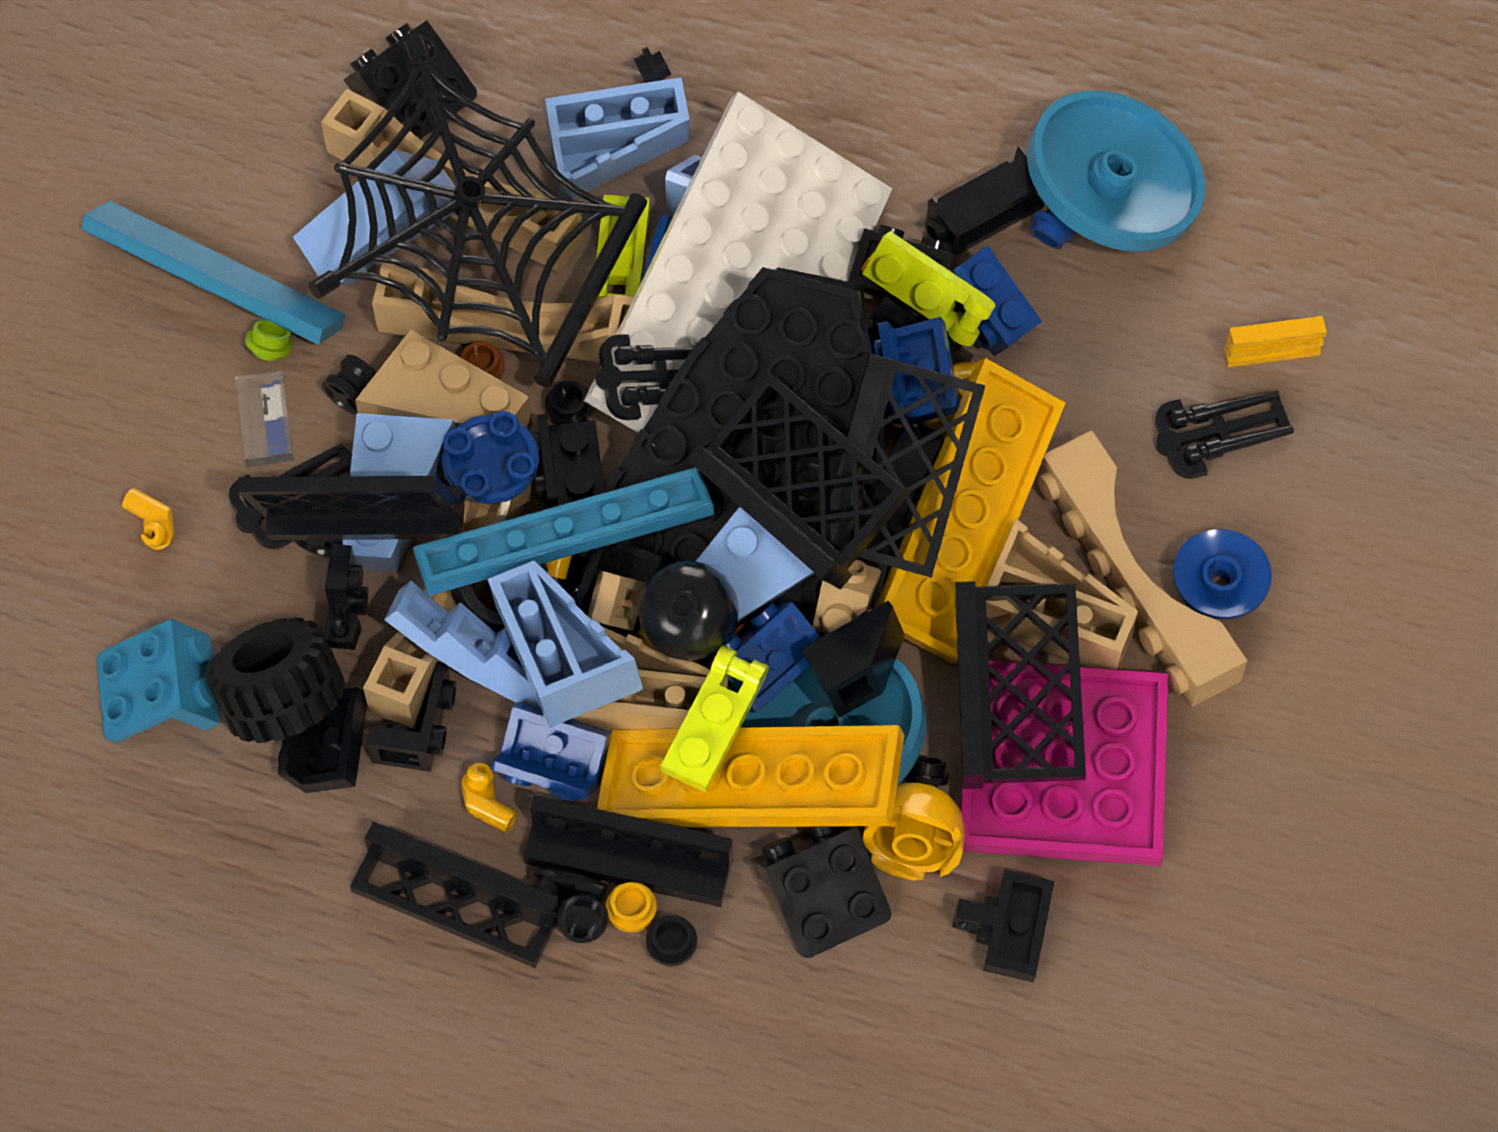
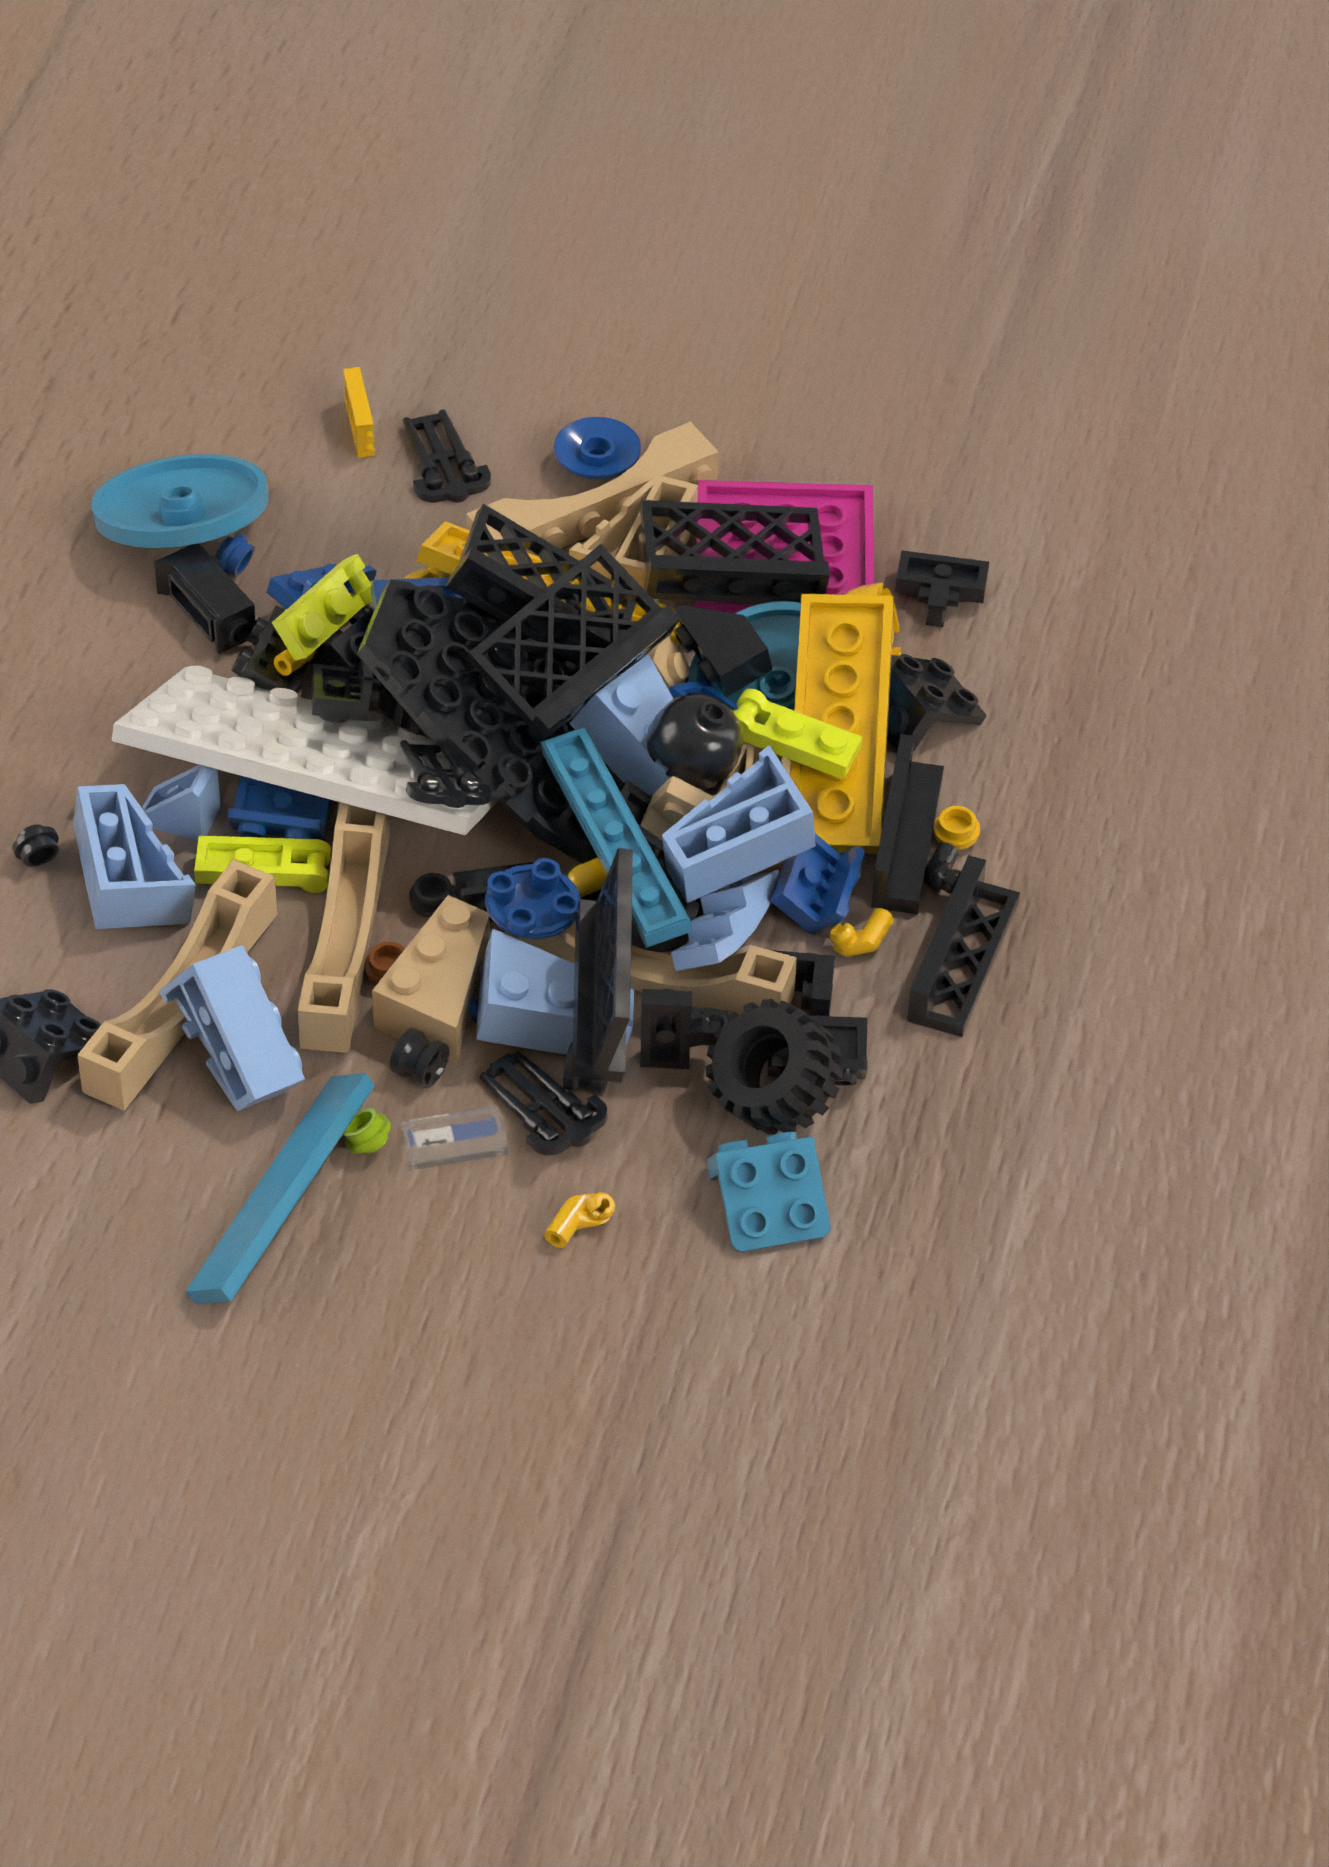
camera: 95 degrees left, 15 degrees down
(465, 203) = (247, 922): black animal -> none
(582, 917) = (978, 847): black plate -> none
(671, 940) = (985, 799): black plate -> none

